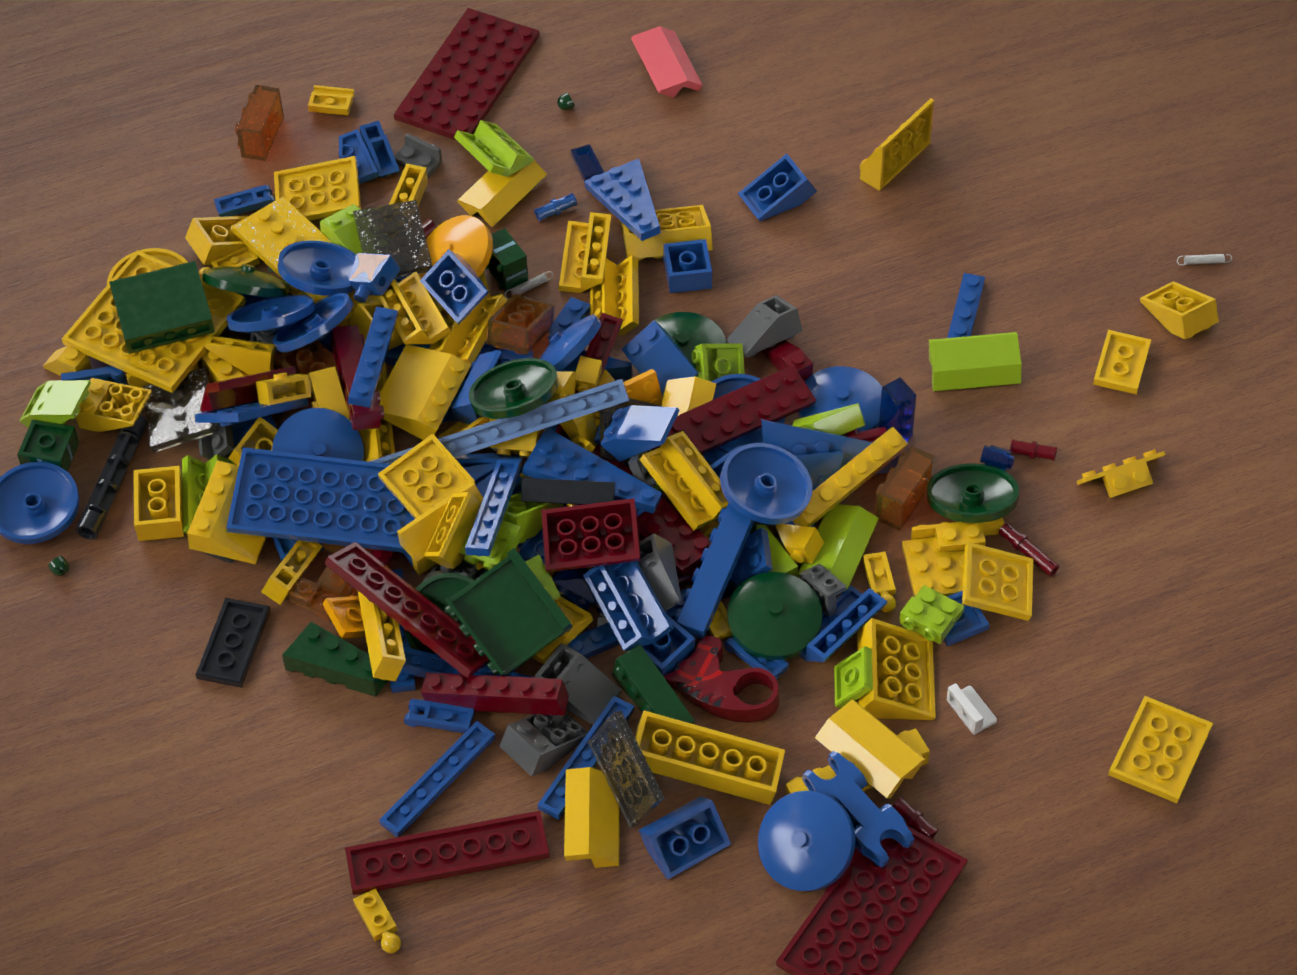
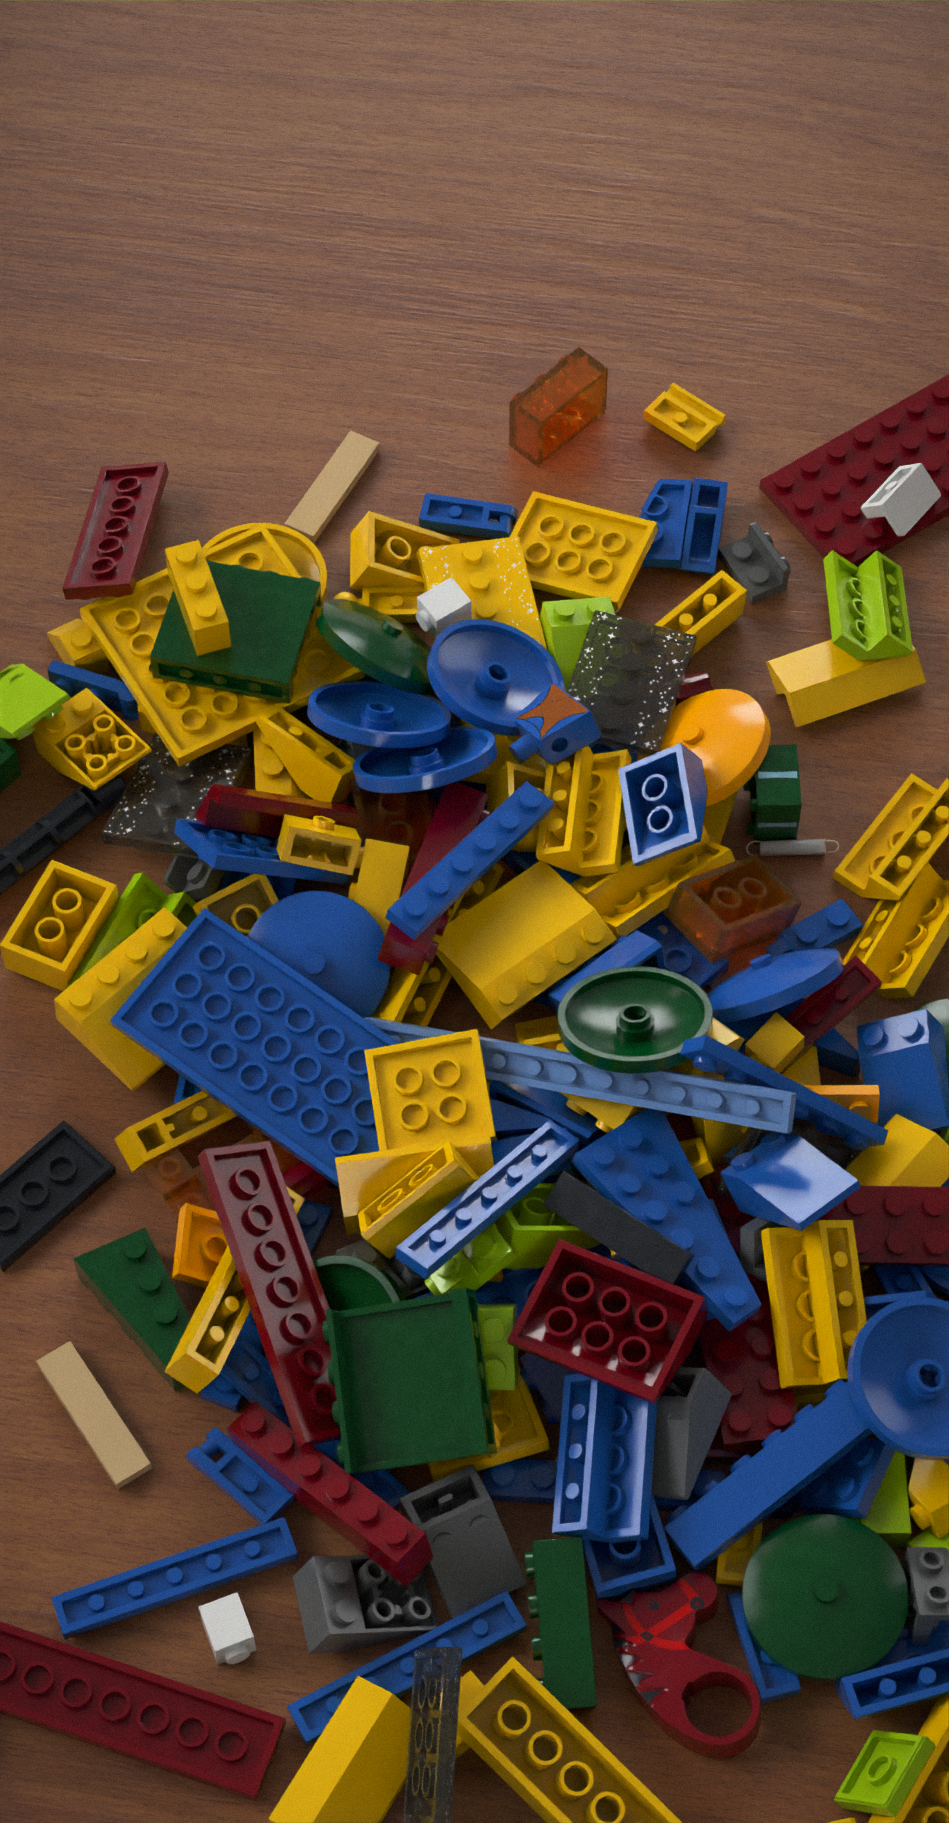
camera: 30 degrees right, 5 degrees up
(52, 292) = (116, 531): none -> dark red plate
(134, 296) = (198, 597): none -> yellow brick
(156, 217) = (333, 485): none -> tan tile
(268, 247) = (443, 607): none -> white brick
(340, 727) = (94, 1415): none -> tan tile
(478, 87) = (903, 498): none -> white panel
(482, 787) = (227, 1629): none -> white brick
(555, 207) = (907, 741): blue pin -> none
(637, 391) = (827, 1115): none -> blue plate

